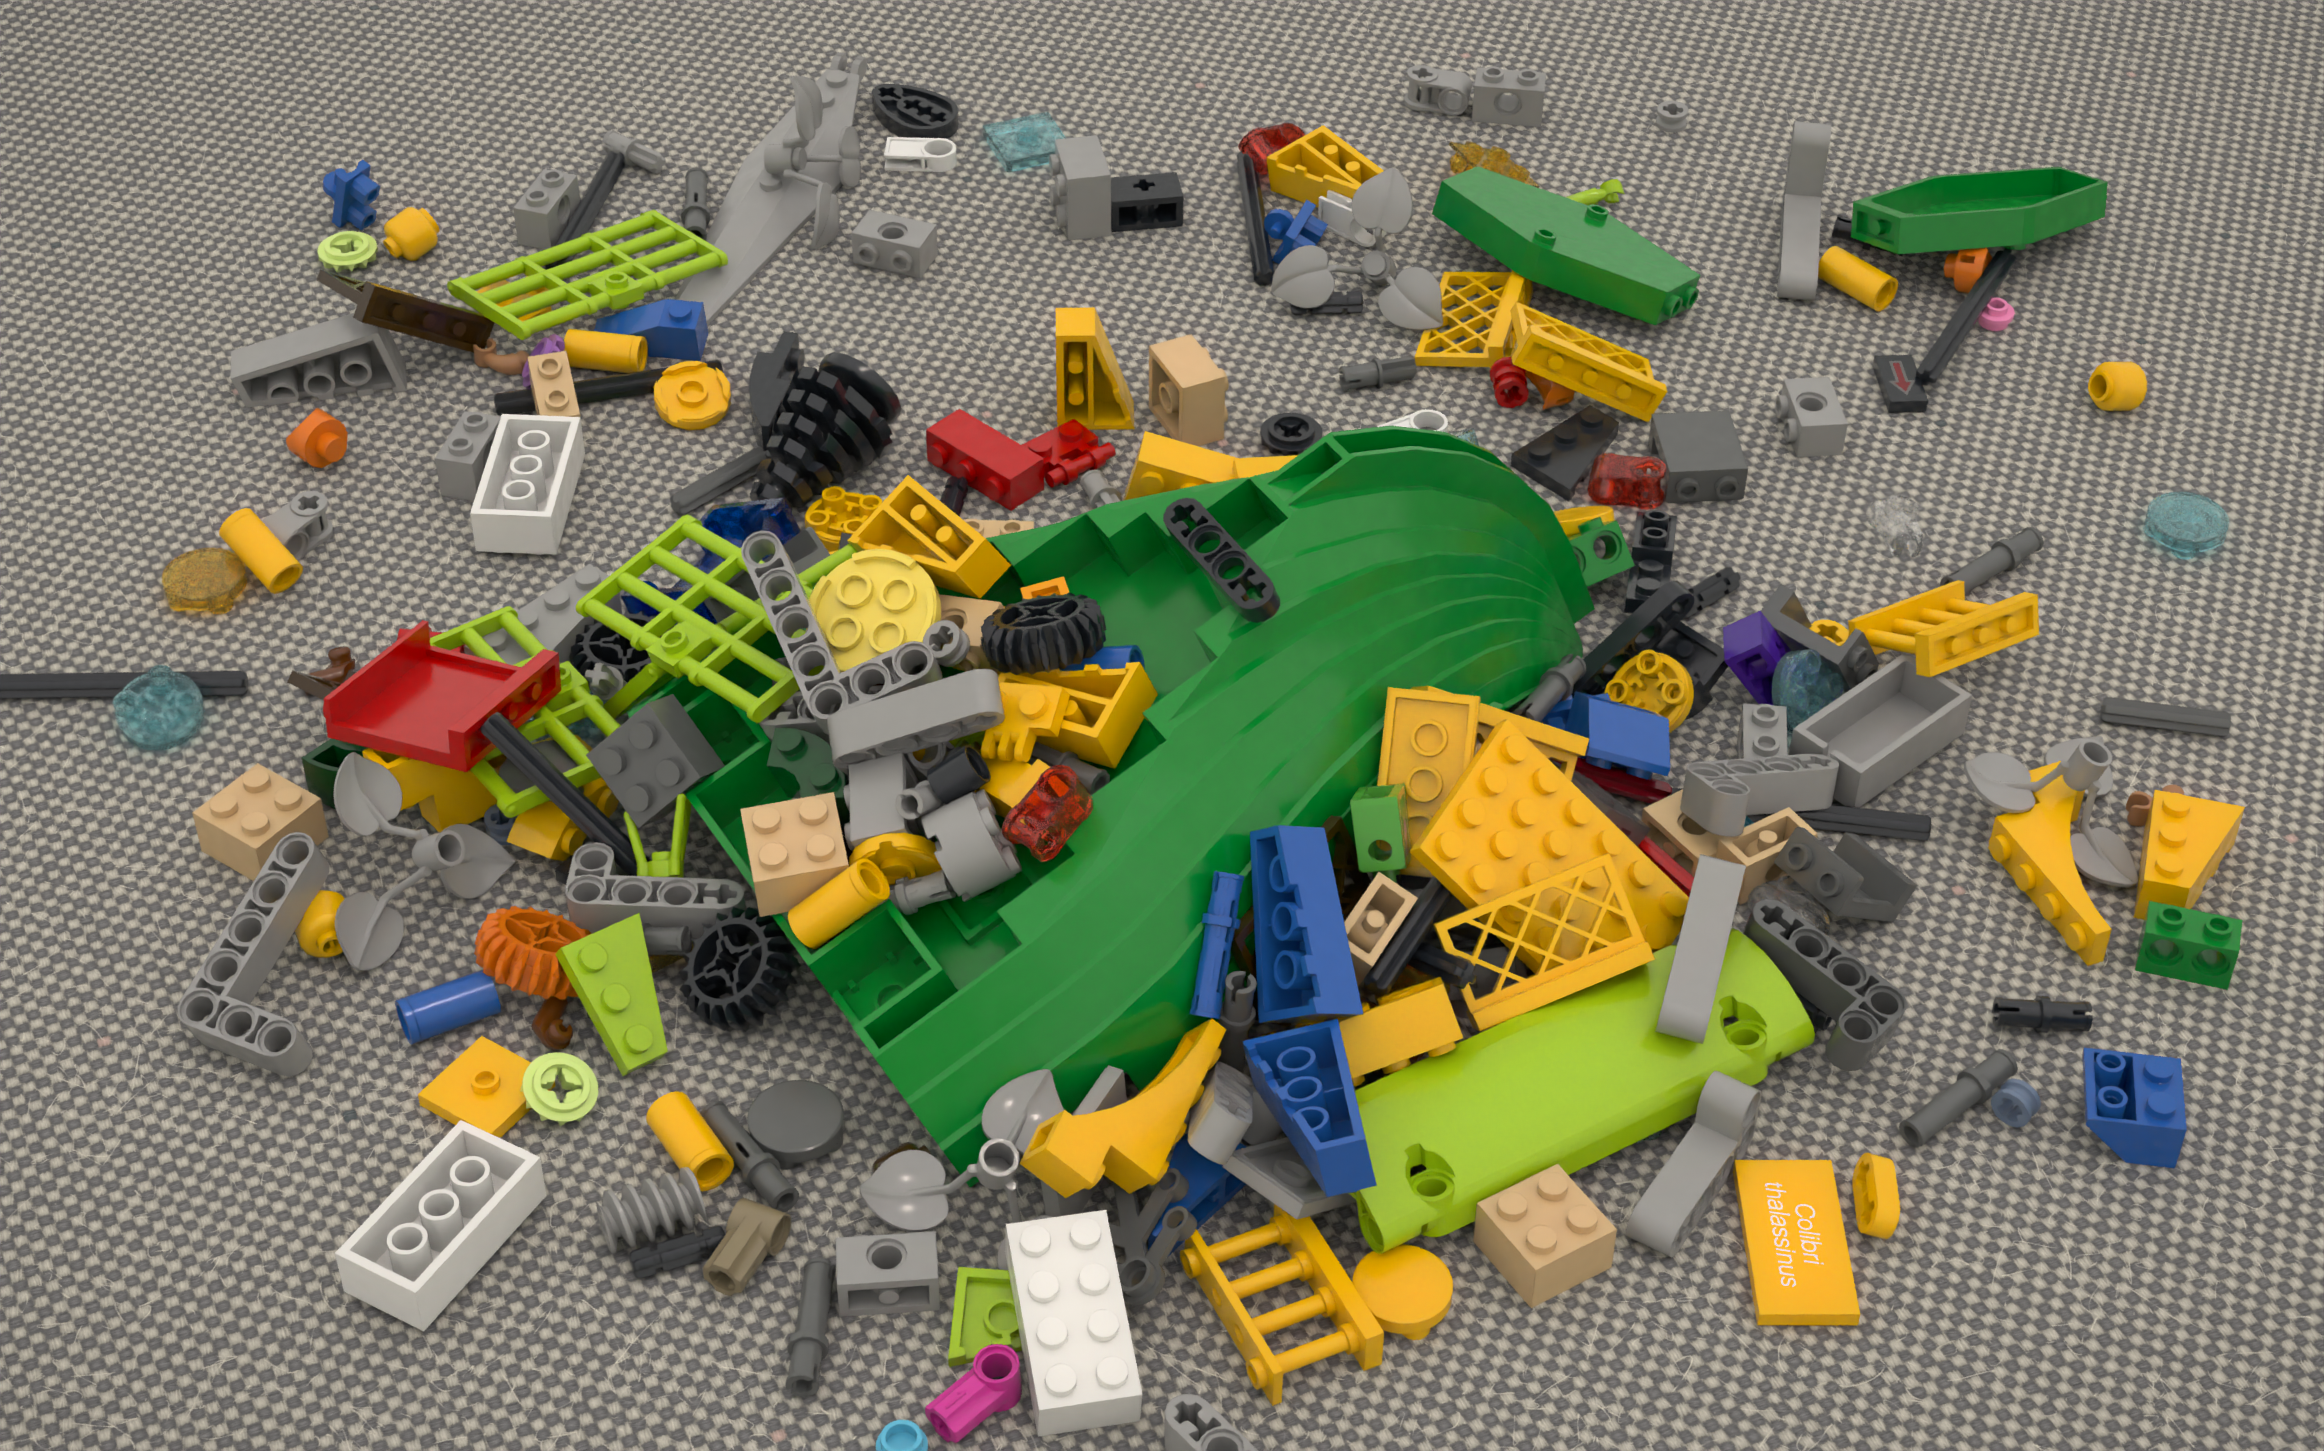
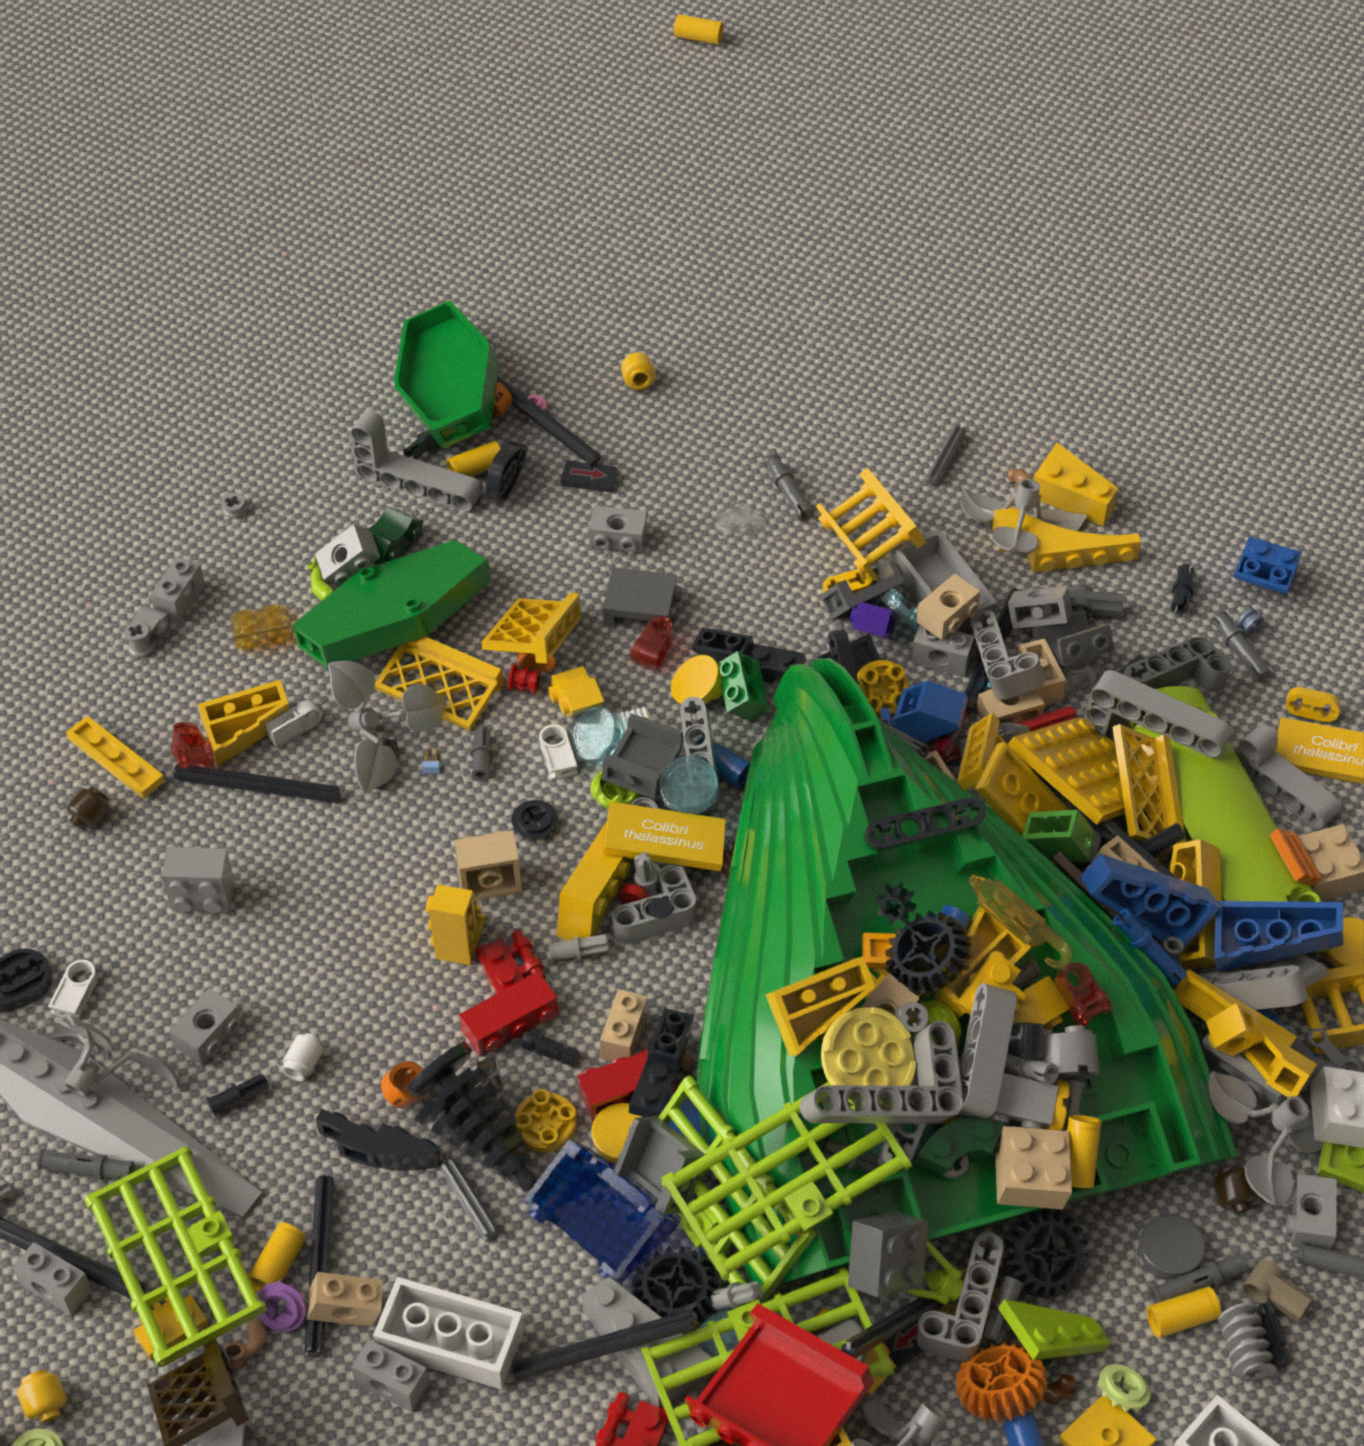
camera: 75 degrees left, 10 degrees up
(520, 588) = (605, 1344): none -> black axle
(670, 326) = (263, 1214): blue slope -> none
(692, 395) = (357, 1202): yellow tile -> none
(813, 287) = (237, 1094): none -> black axle
(875, 318) = (302, 1057): none -> white brick
(1023, 140) = (87, 911): clear light blue plate -> none
(1094, 568) = (895, 911): none -> black gear
(1115, 1071) = (1234, 1030): none -> yellow brick
(1127, 707) = (1019, 918): none -> clear yellow plate
(1146, 202) = (219, 833): black brick -> none
(1161, 105) = (88, 808): none -> dark brown head
(1244, 111) = (115, 757): none -> yellow plate
(1295, 232) = (296, 761): blue hips -> none
(1341, 343) = (431, 767): none -> light blue piece
(1500, 421) = (575, 692): none -> yellow brick
(1542, 1143) = (1295, 857): none -> orange tile
(1567, 451) = (612, 672): black wing -> none
(1625, 192) = (347, 555): none -> light grey brick
(1686, 232) = (395, 533): none -> dark green brick
(1713, 589) = (771, 632): black axle -> none
(1808, 707) = (948, 606): none -> tan brick
(1848, 277) = (505, 471): none -> black piece
(1885, 829) = (1040, 607): none -> light grey brick
(1944, 895) = (1095, 602): none -> dark grey piece
(2186, 523) = (777, 385): clear light blue tile -> none
(2188, 945) = (1146, 507): green brick -> none

